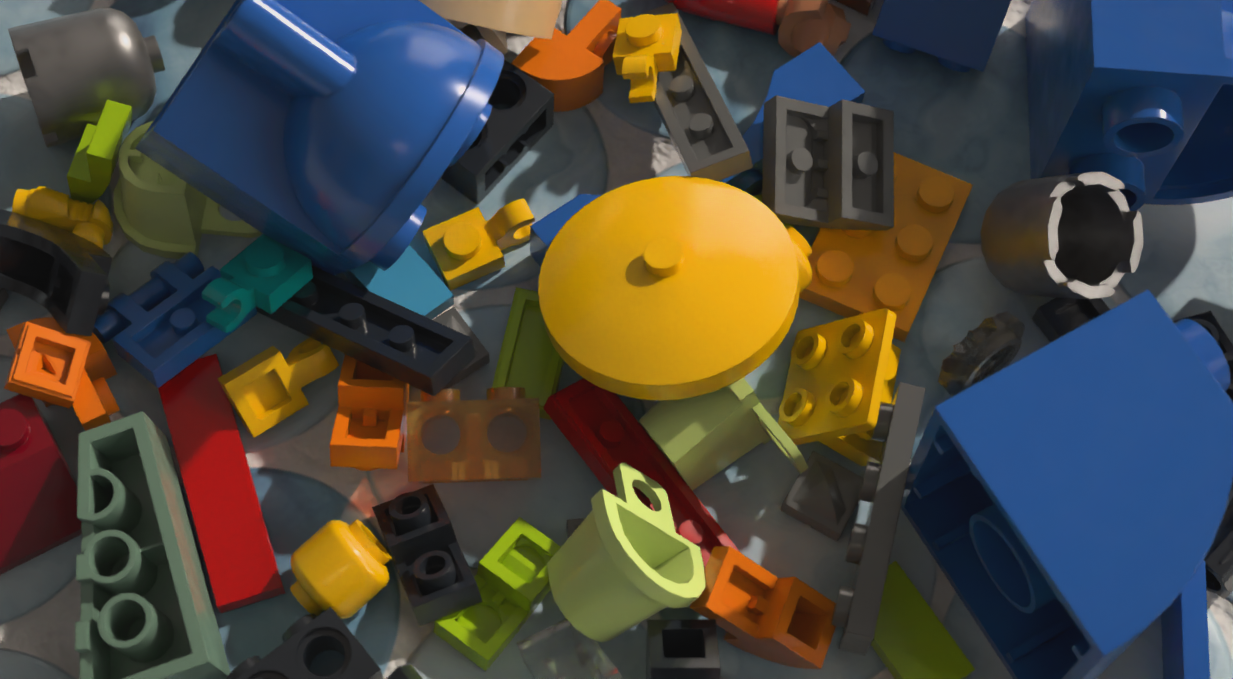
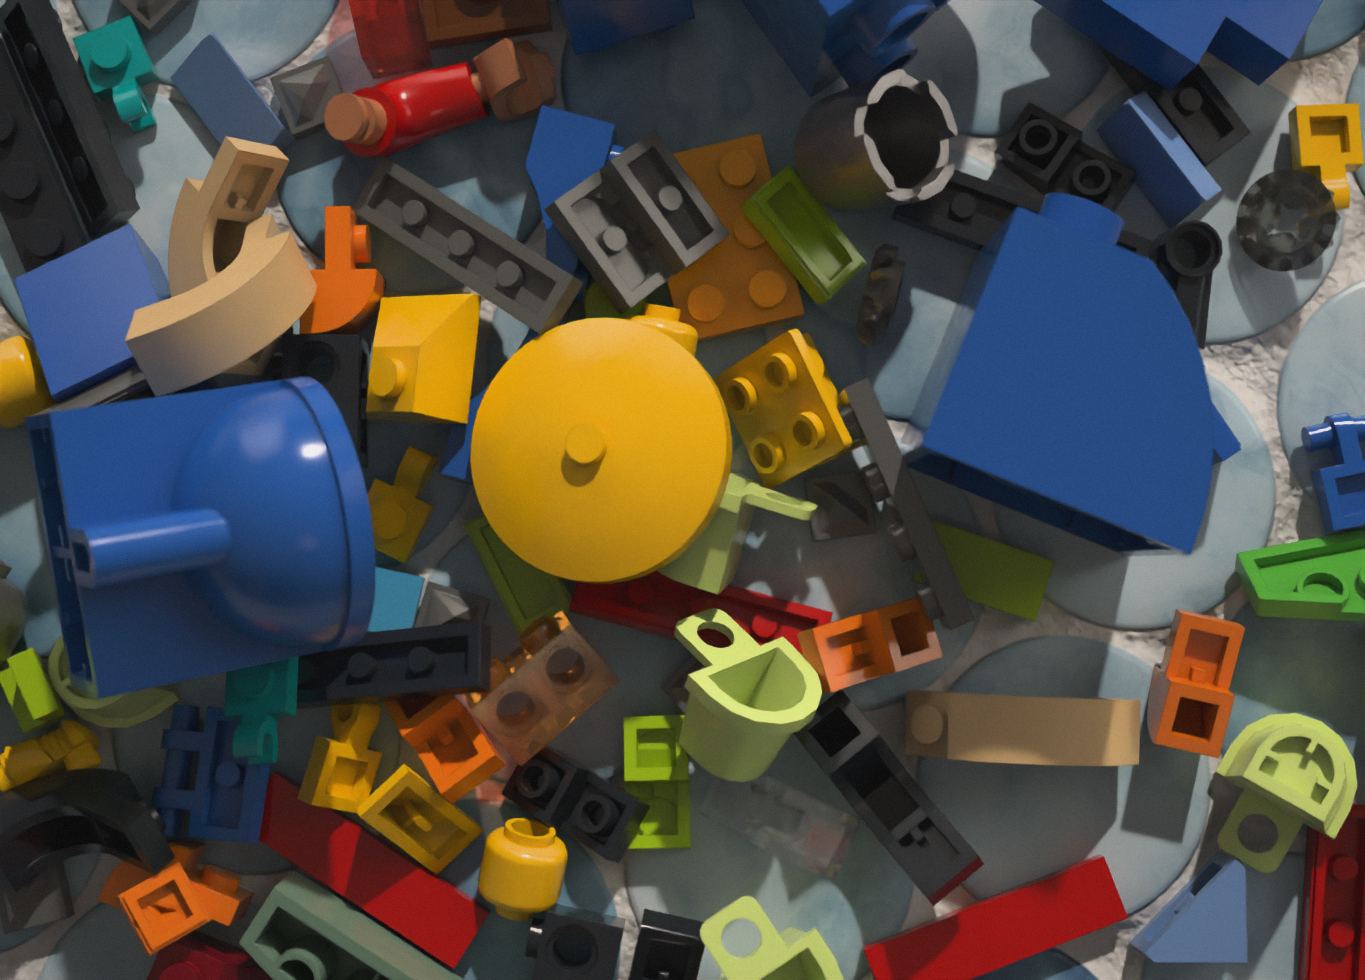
camera: 35 degrees left, 20 degrees up
(294, 464) = (419, 819): none -> yellow slope
(579, 145) = (423, 359): none -> yellow slope
(643, 49) = (401, 233): yellow plate -> none
(951, 272) = (803, 235): none -> lime tile

